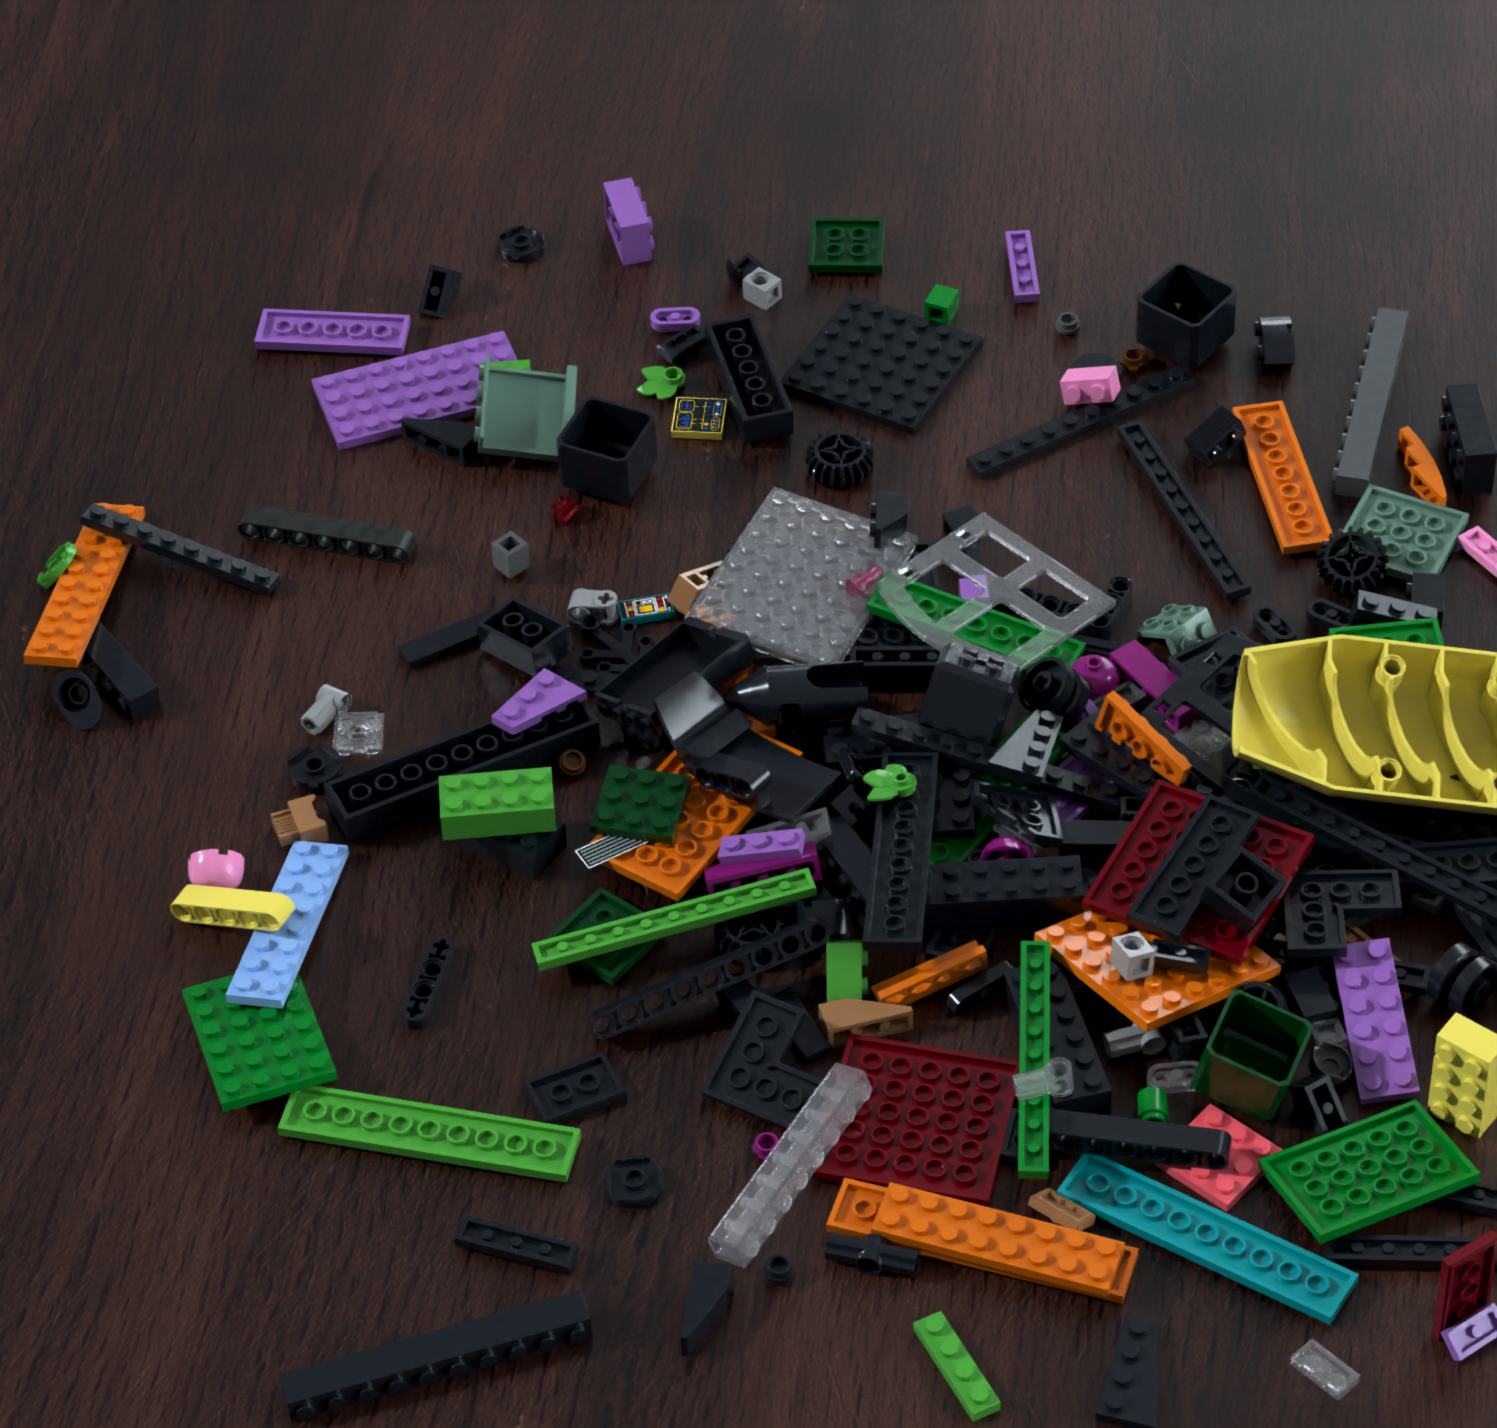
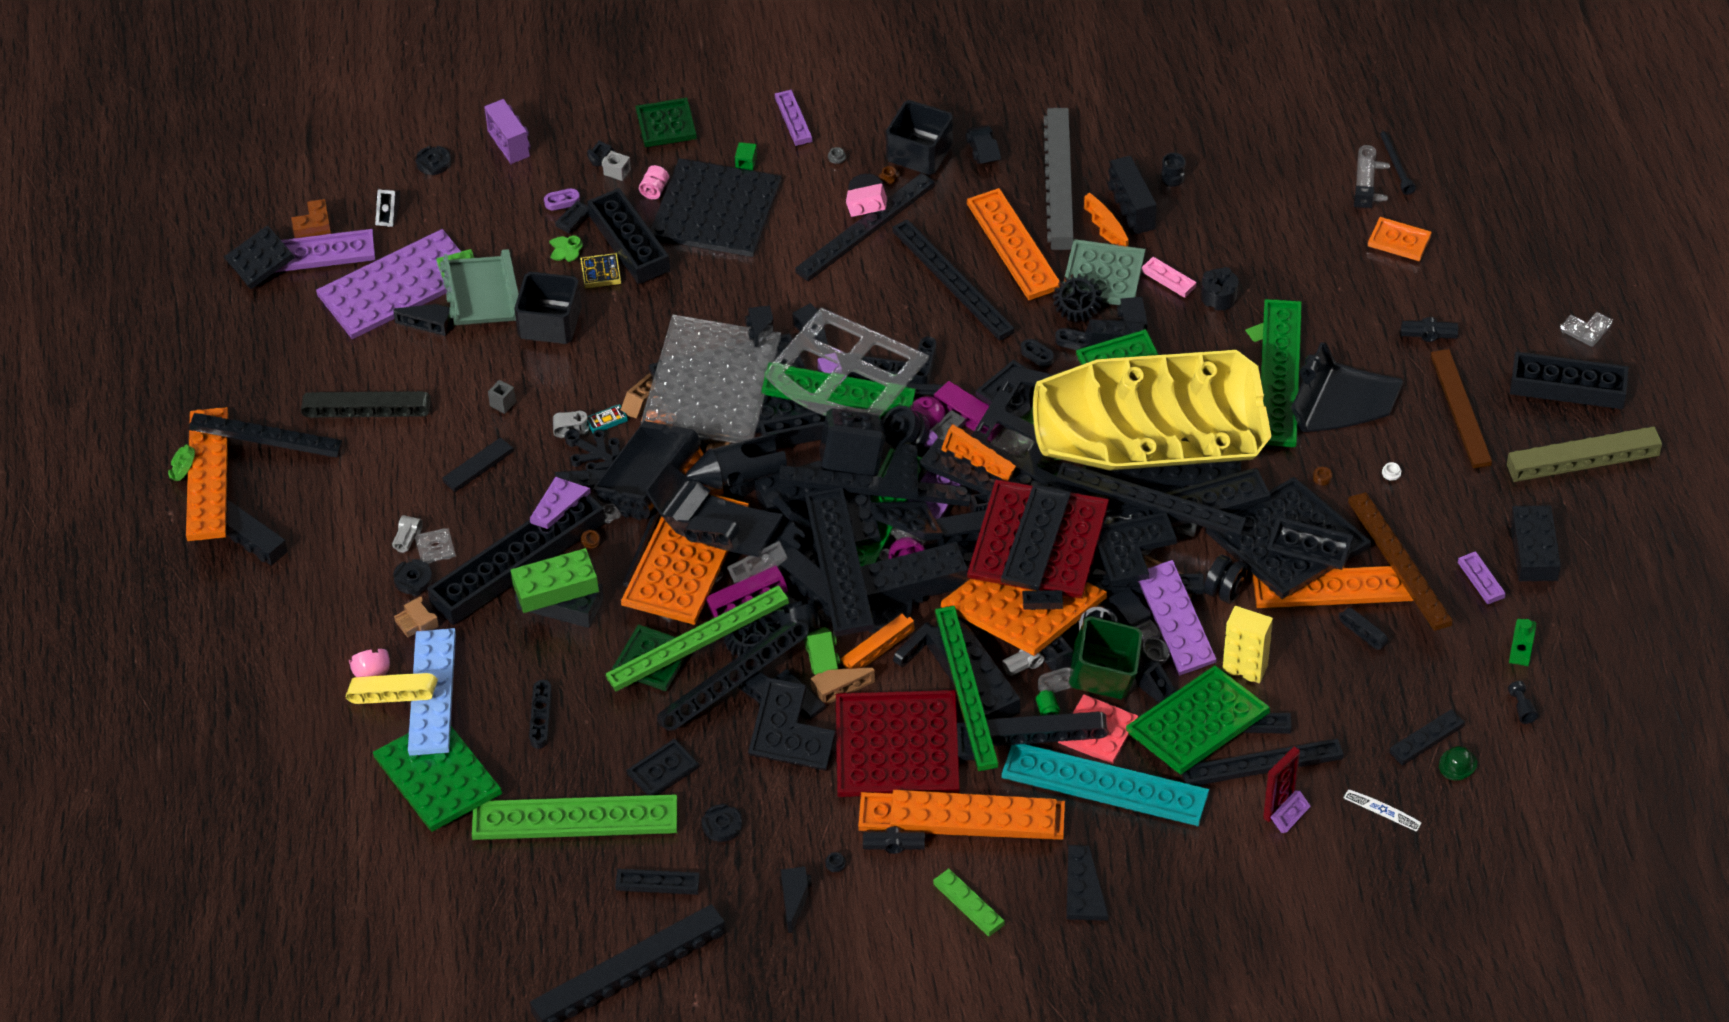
camera: 15 degrees left, 5 degrees up
(77, 699) = (230, 559): black piece -> none
(249, 325) = (259, 257): none -> black plate
(335, 296) = (313, 224): none -> dark orange brick
(524, 636) = (531, 455): black brick -> none
(564, 509) = (526, 355): dark red plate -> none
(606, 849) = (639, 594): sticker -> none
(640, 804) = (650, 561): dark green plate -> none
(761, 846) = (742, 576): medium lavender plate -> none
(763, 1141) = (803, 777): magenta plate -> none
(790, 1165) = (824, 791): clear brick -> none
(805, 317) = (653, 182): none -> bright pink wheel
(840, 458) = (708, 284): black gear -> none
(861, 582) = (754, 375): clear pink pin -> none
(890, 783) = (818, 515): bright green plate -> none
(1053, 1079) = (979, 702): clear piece -> none
(1061, 1210) = (1008, 785): medium nougat plate -> none
(1132, 956) = (1012, 606): light grey brick -> none
(1179, 626) = (976, 365): sand green bracket -> none
(1215, 436) = (962, 222): black brick -> none
(1243, 889) = (1074, 547): black brick -> none
(1325, 1369) = (1203, 855): clear plate -> none

